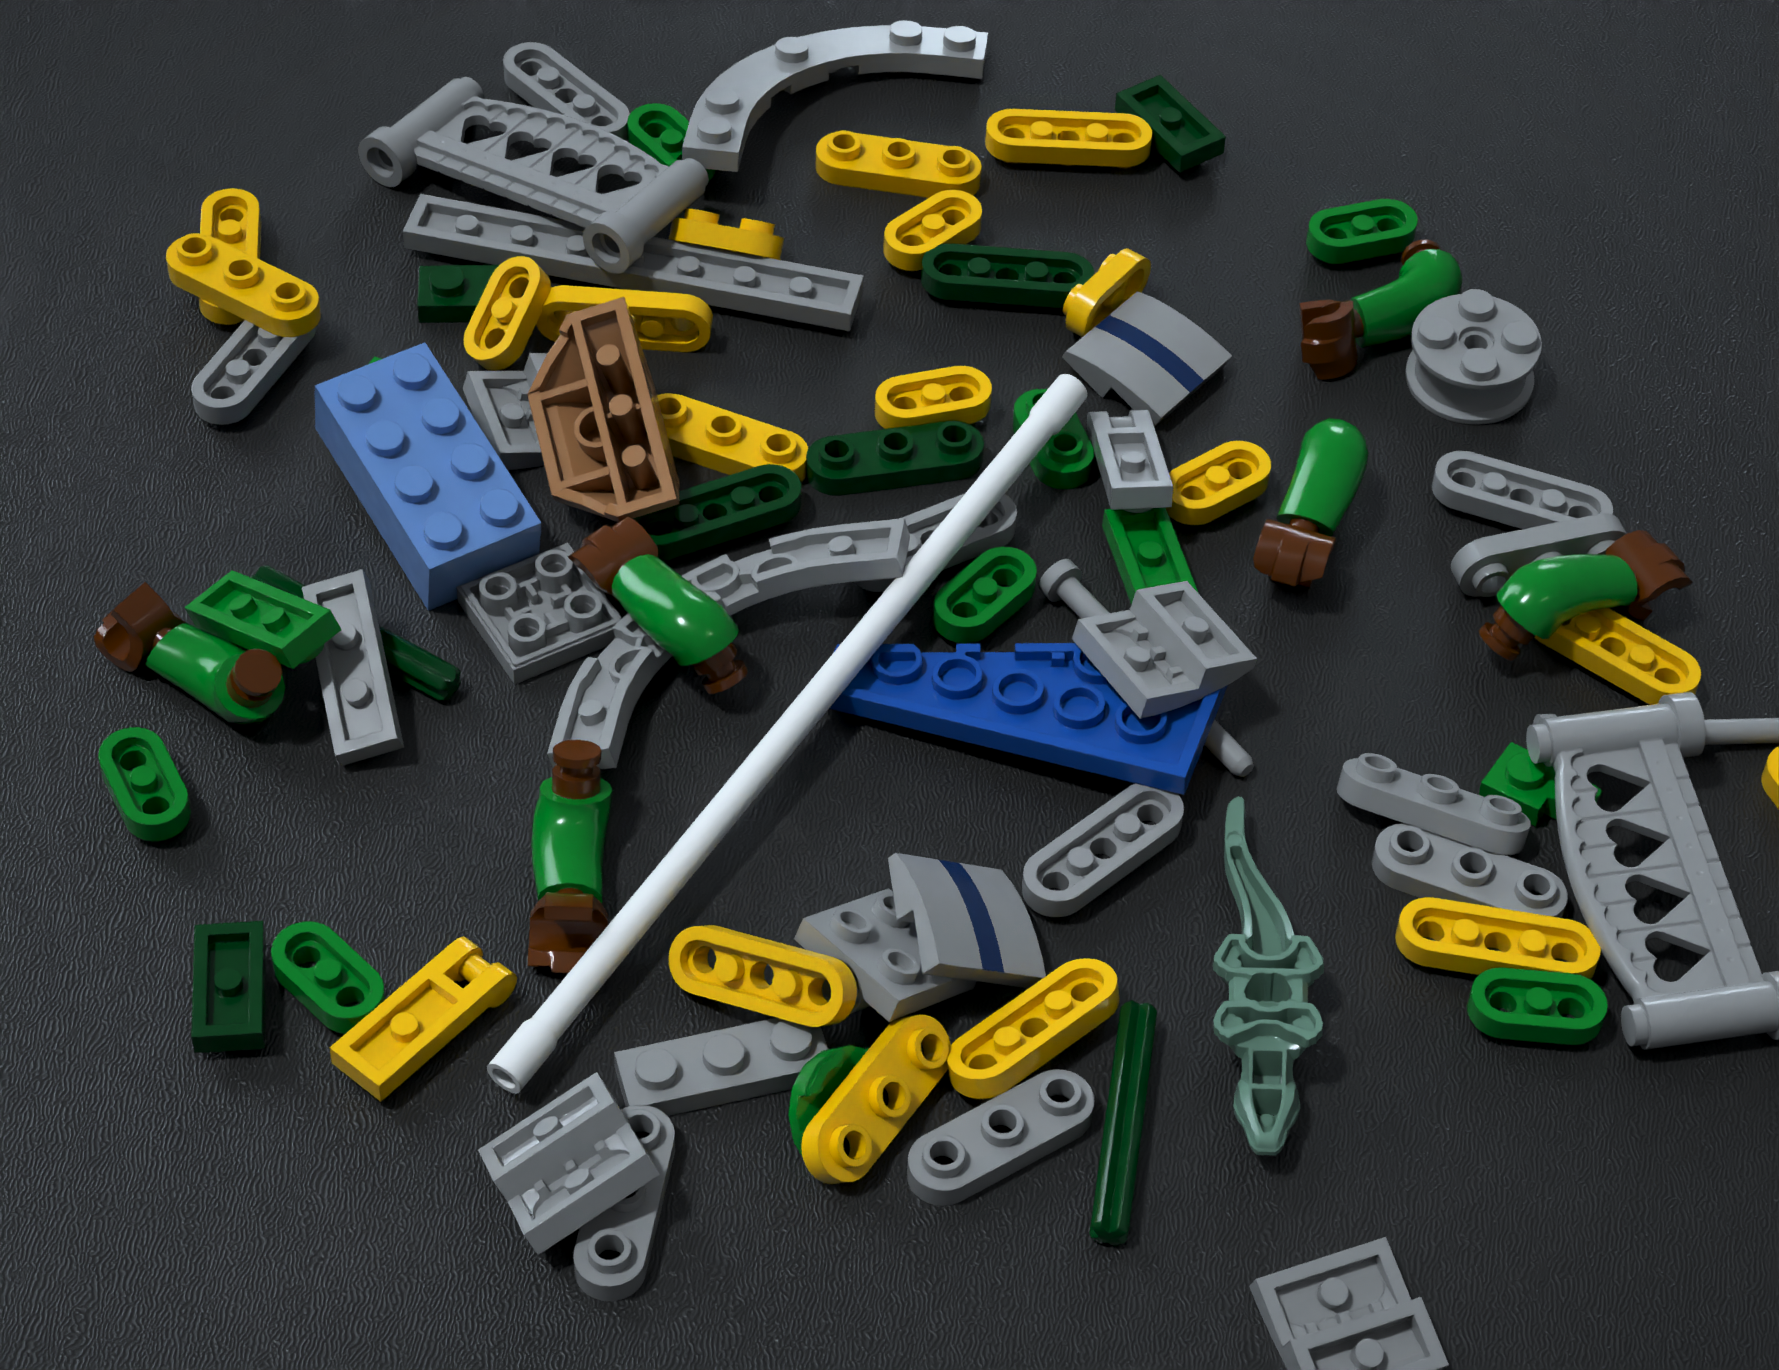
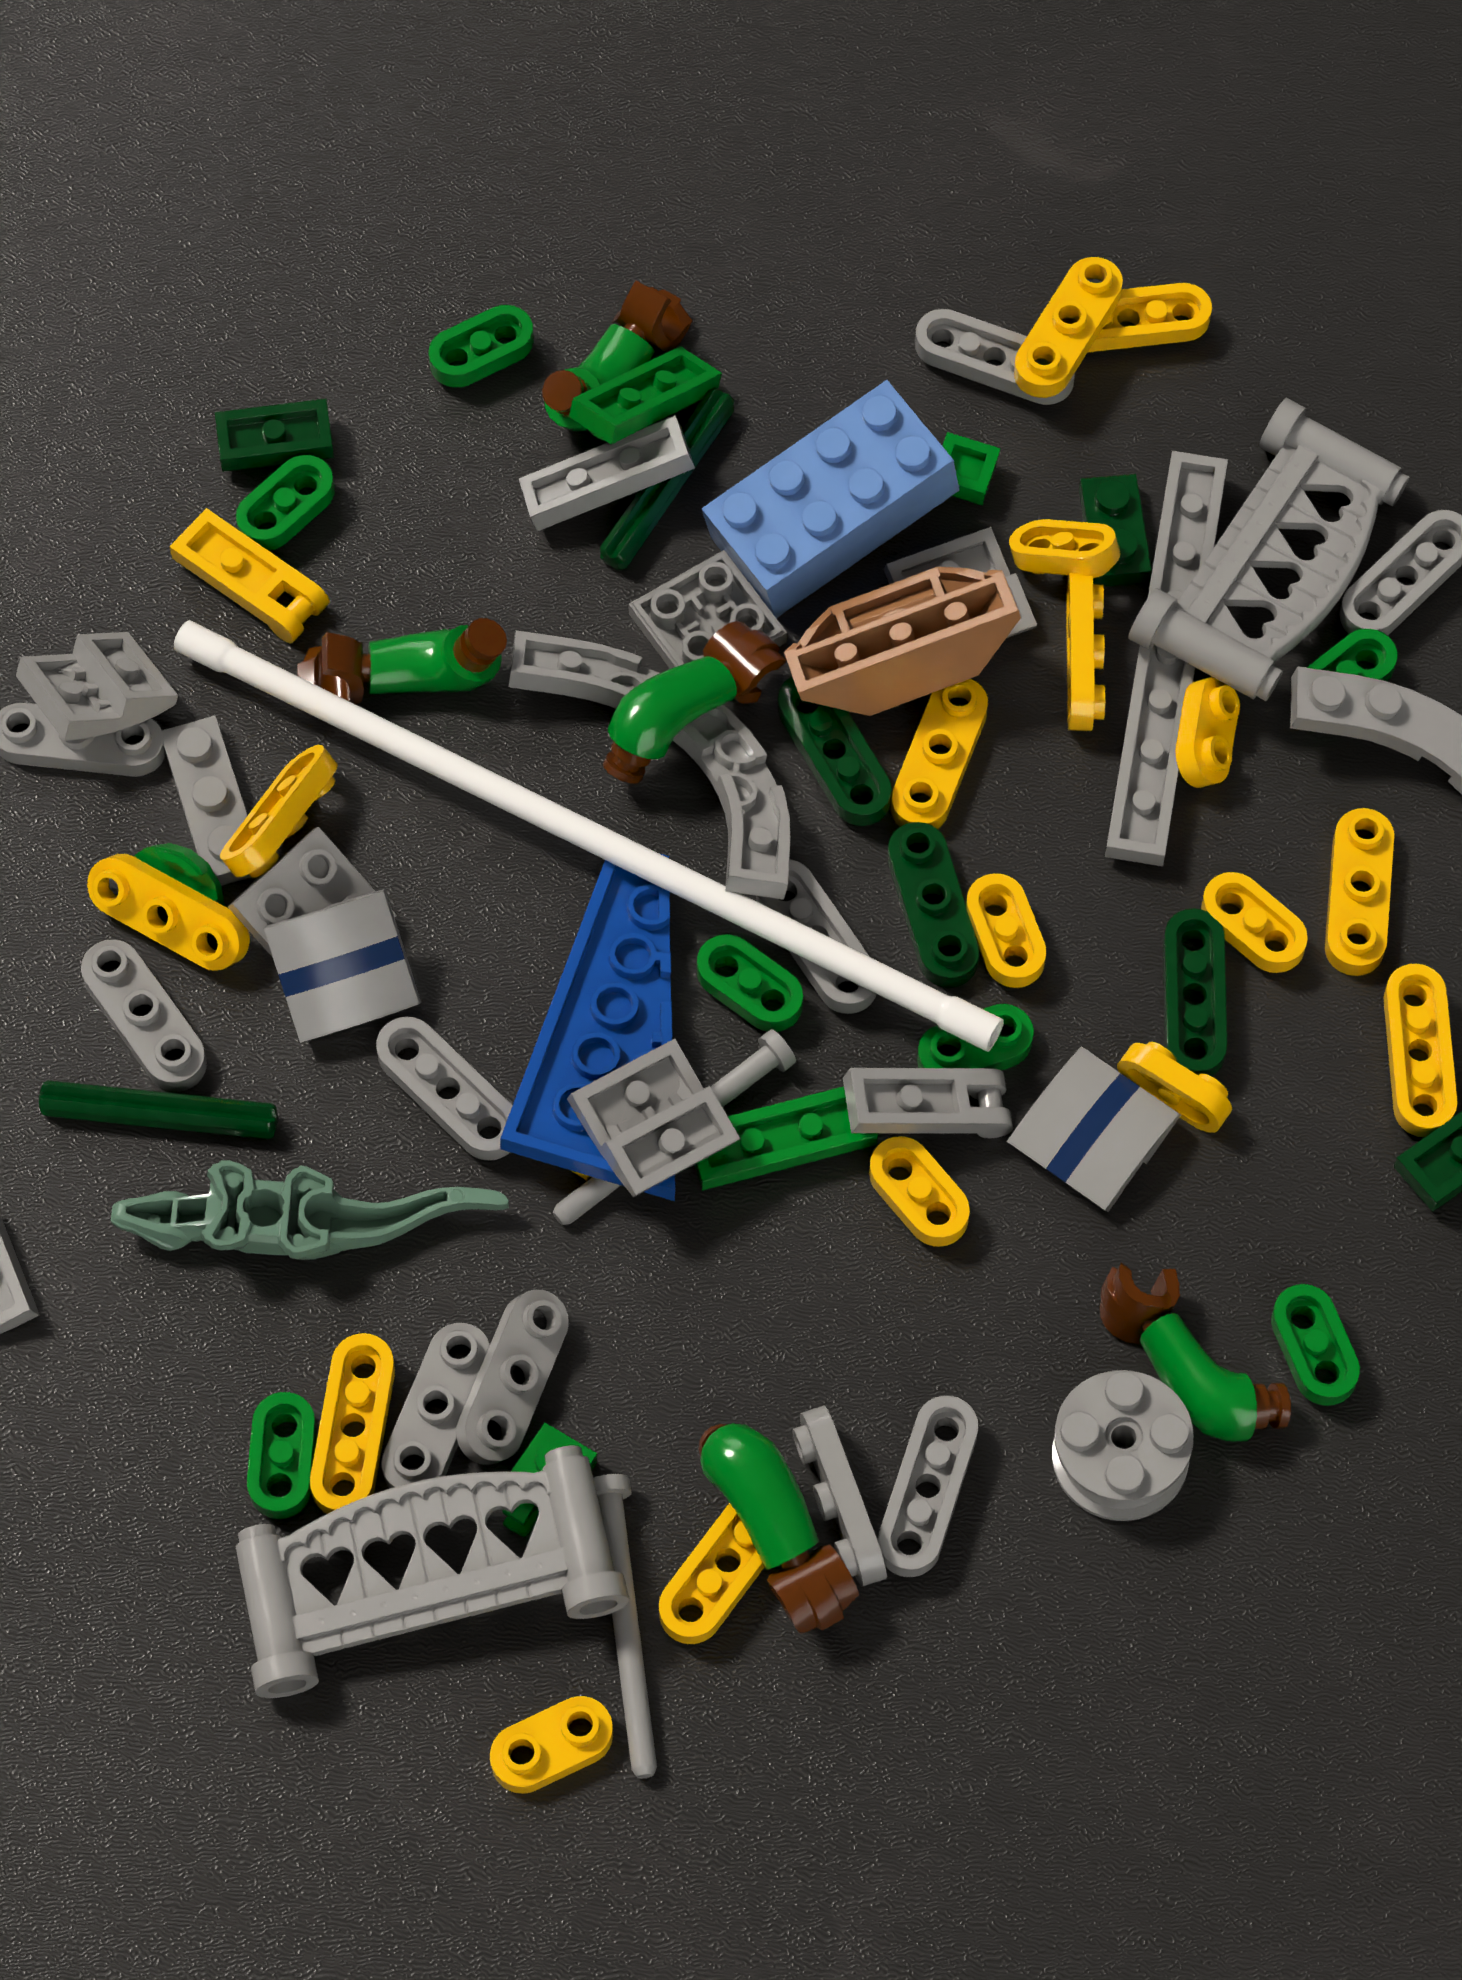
camera: 90 degrees right, 15 degrees up
(1033, 1028) = (238, 1013): yellow plate -> none
(1321, 490) = (892, 1273): green piece -> none

